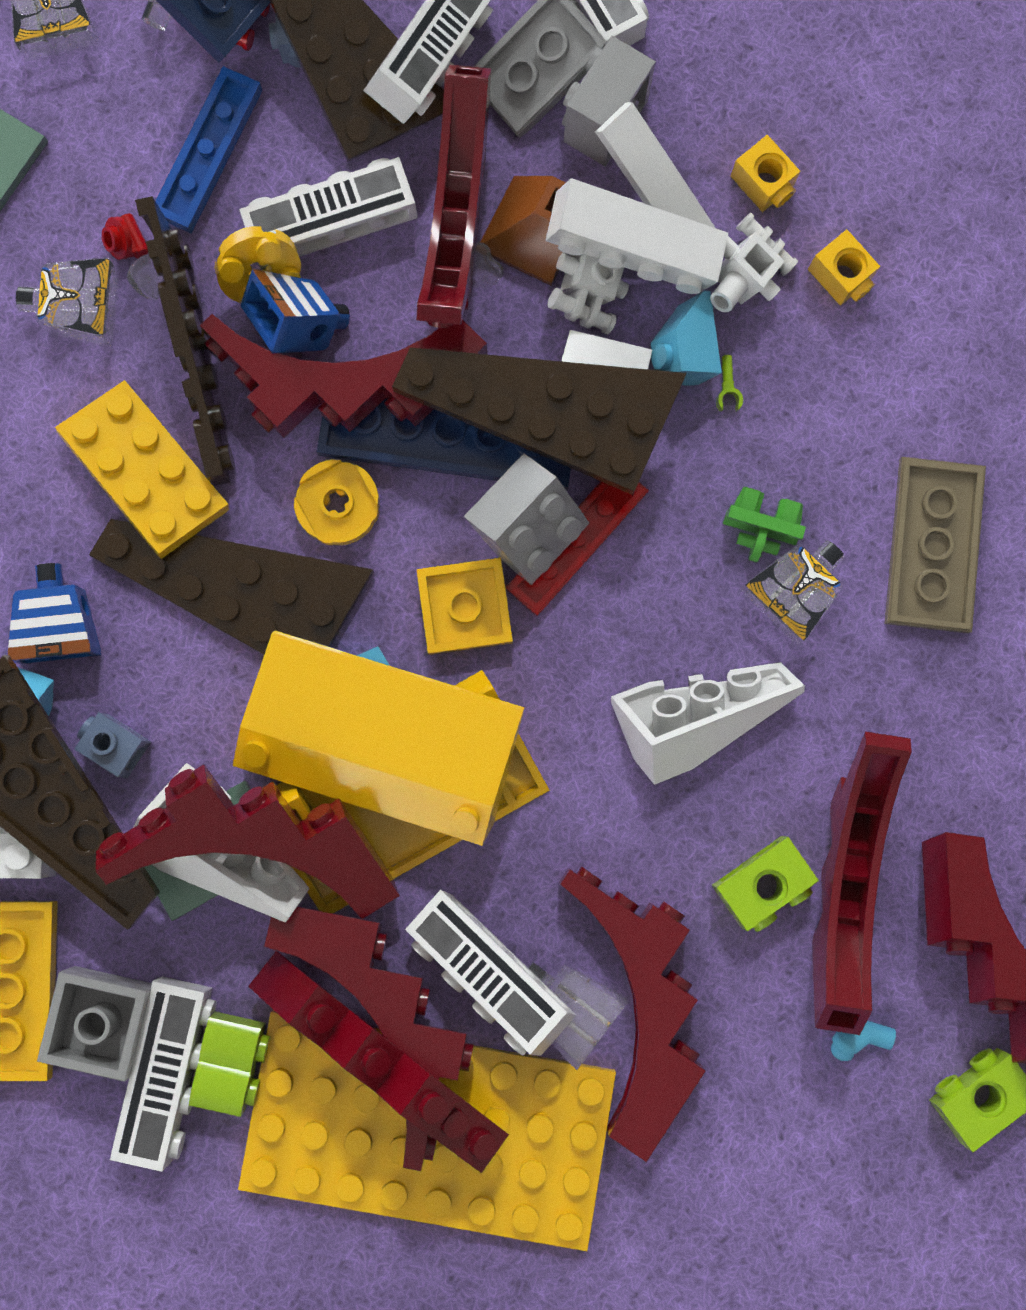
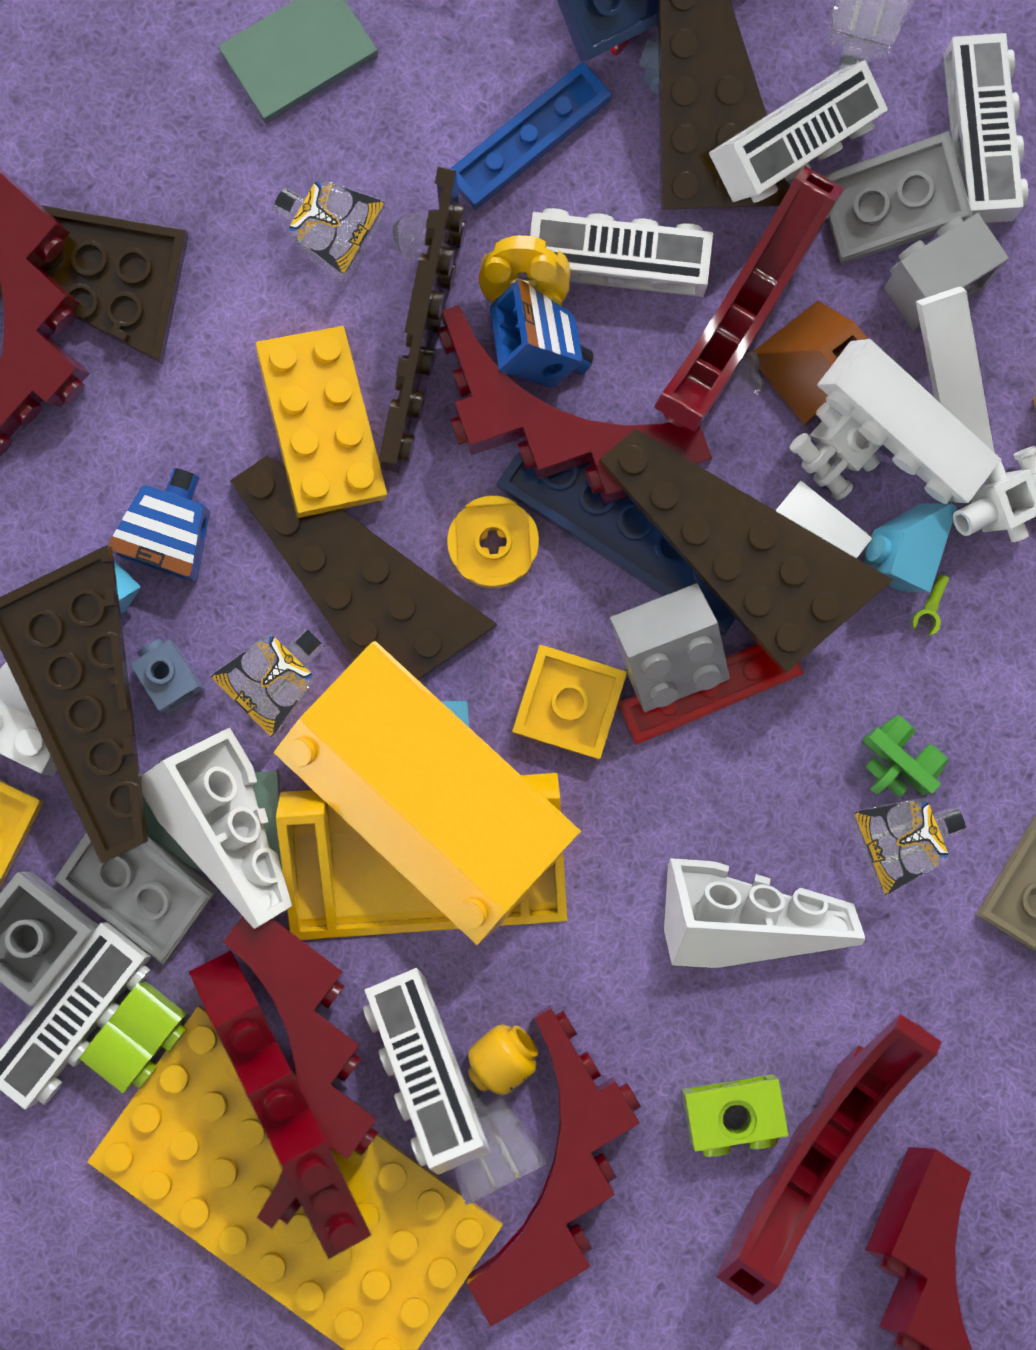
camera: 25 degrees right, 0 degrees up
(123, 237) = (407, 185): red plate -> none
(176, 940) = (139, 893): none -> light grey tile
(203, 705) = (272, 680): none -> torso
(261, 824) = (274, 823): dark red arch -> none
(549, 932) = (502, 1059): none -> yellow head
(846, 1044) = (740, 1309): medium azure arm -> none

